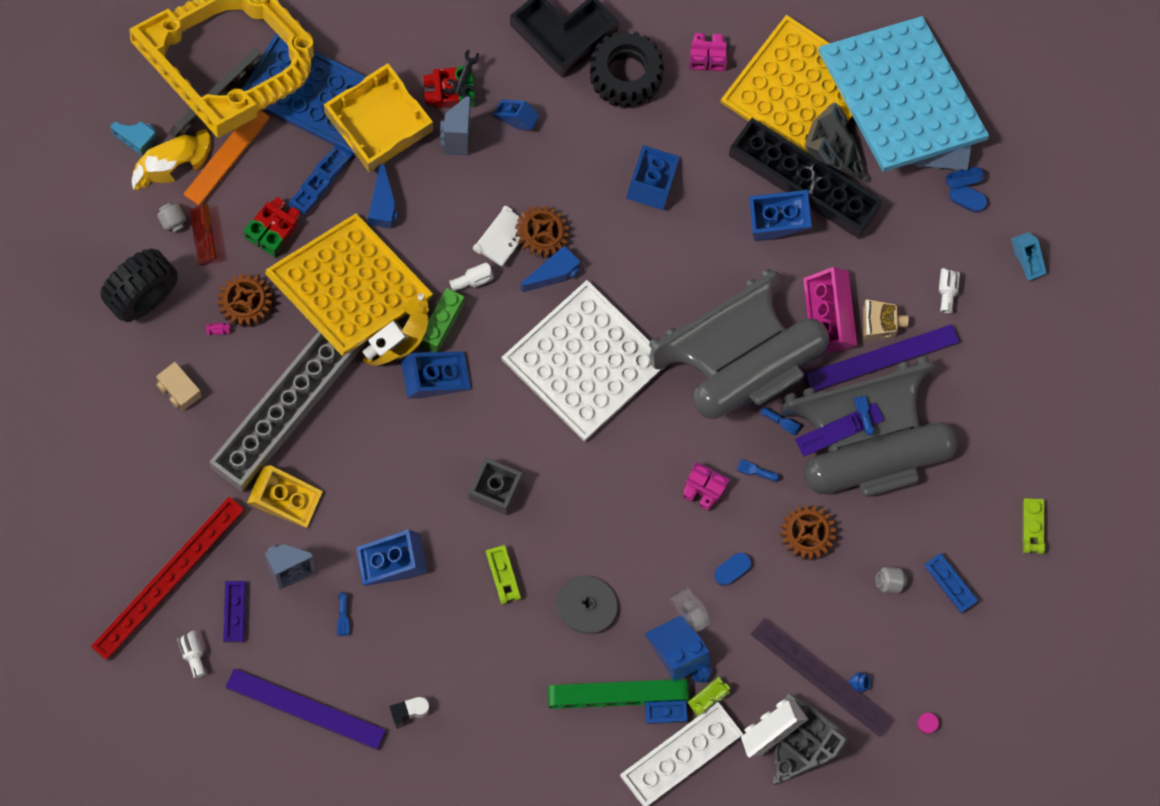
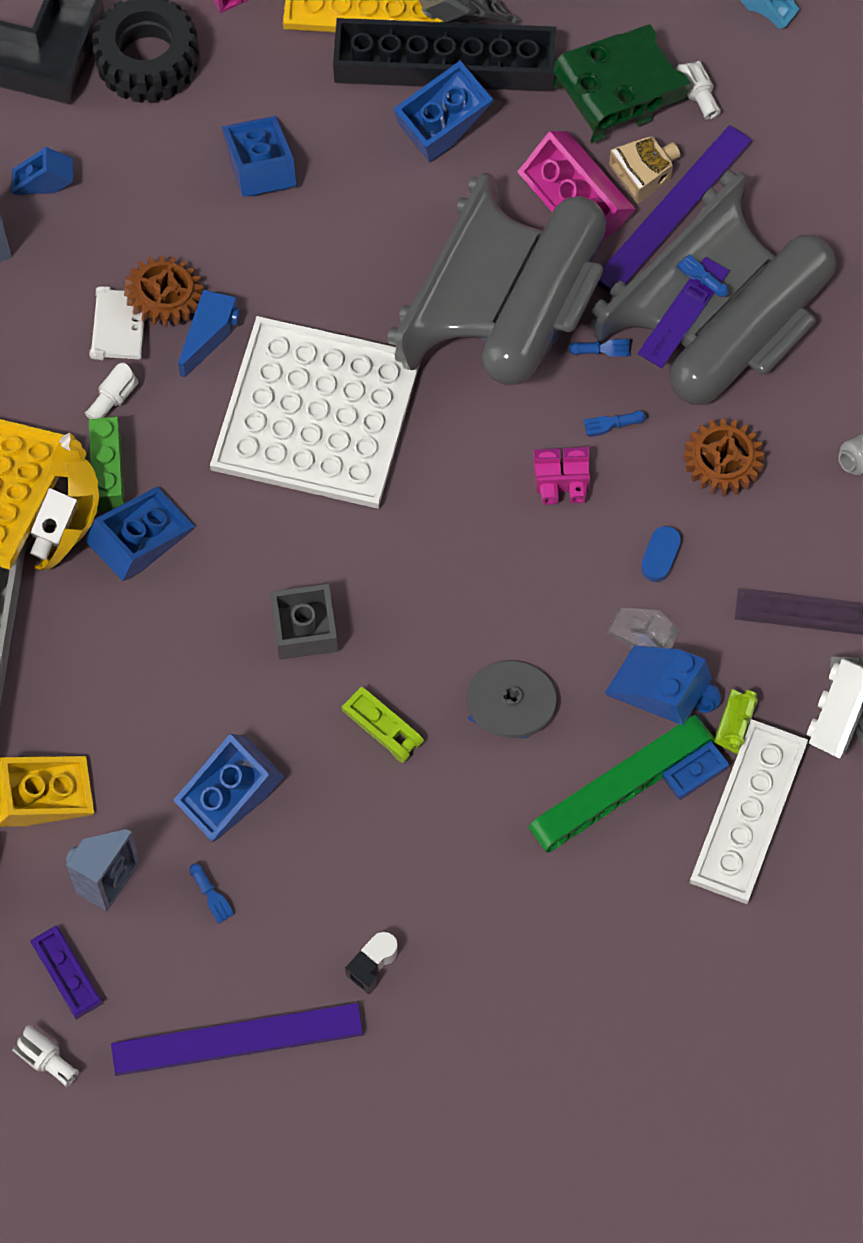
camera: 25 degrees left, 5 degrees down
(908, 258) = (619, 79): none -> dark green piece

